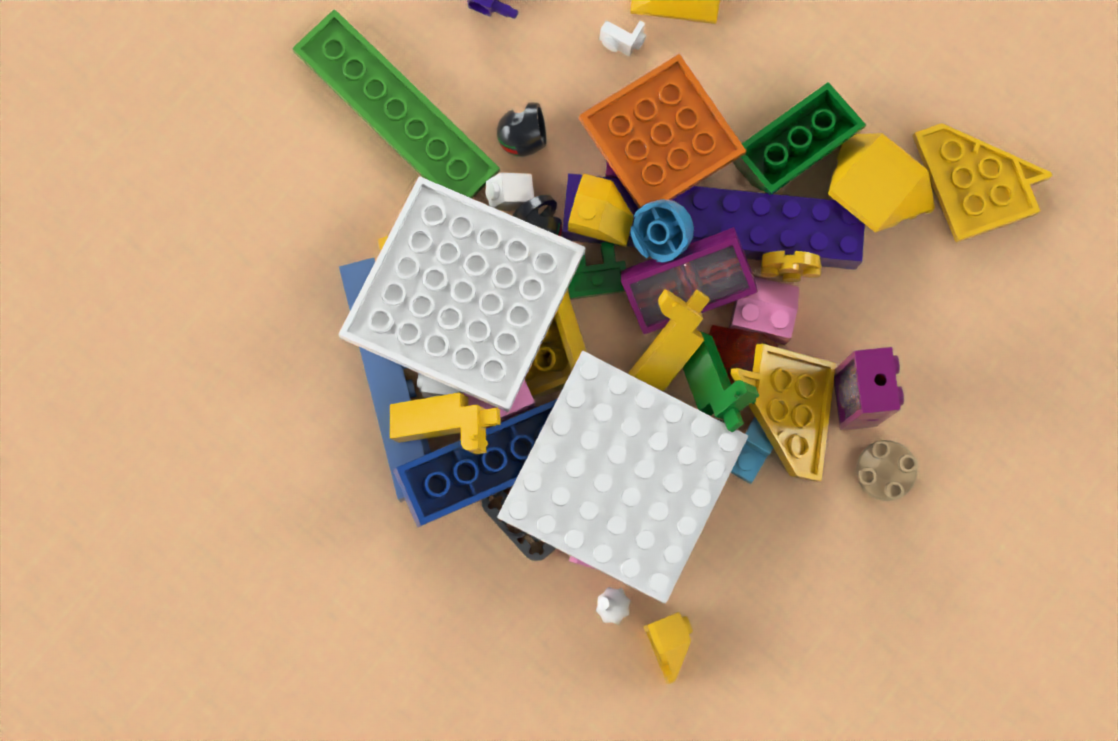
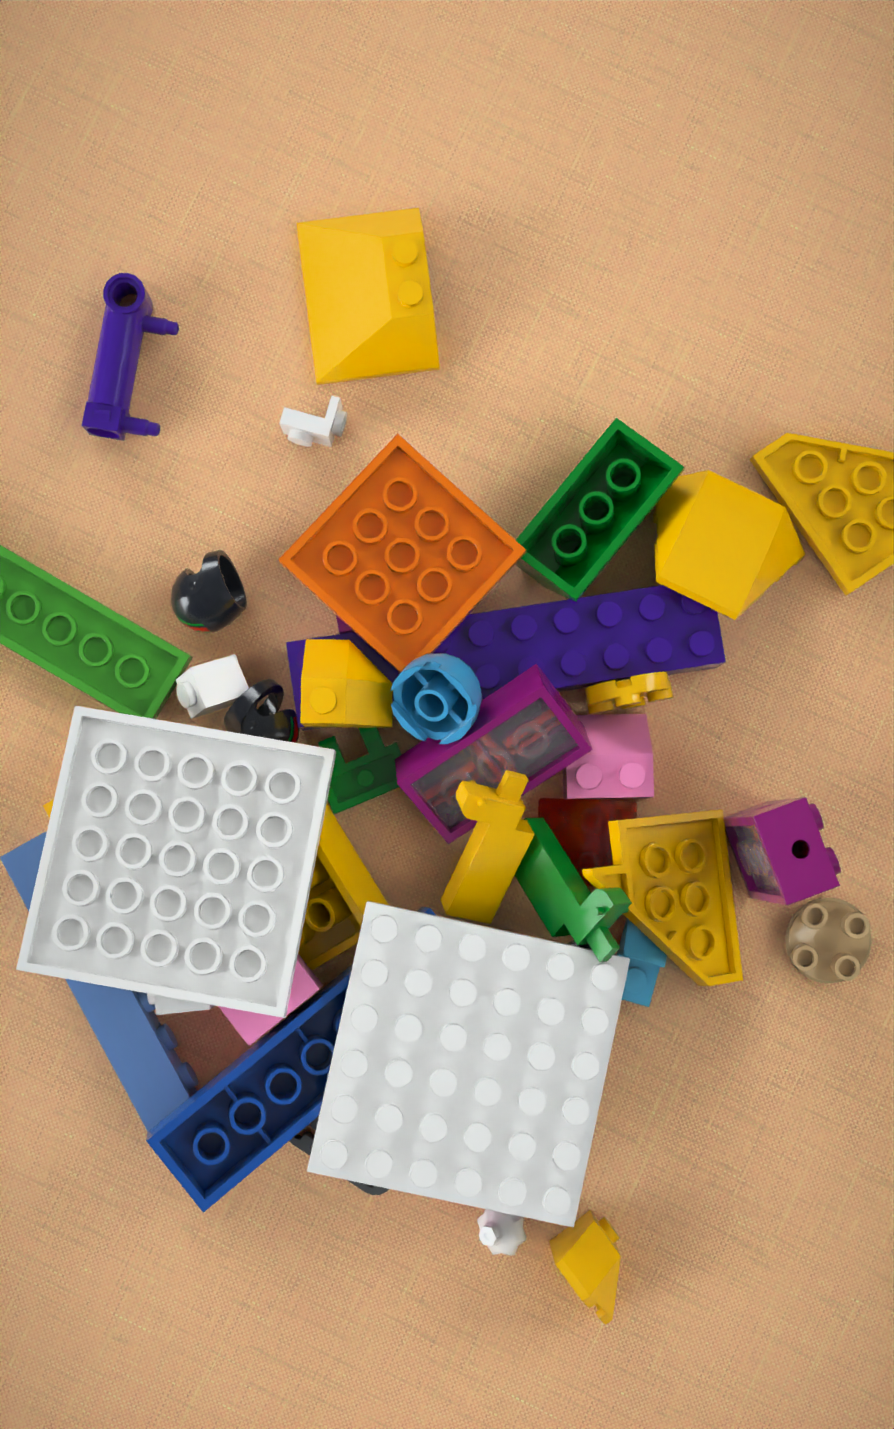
camera: 10 degrees left, 5 degrees up
(442, 417) = (198, 1044): yellow piece -> none

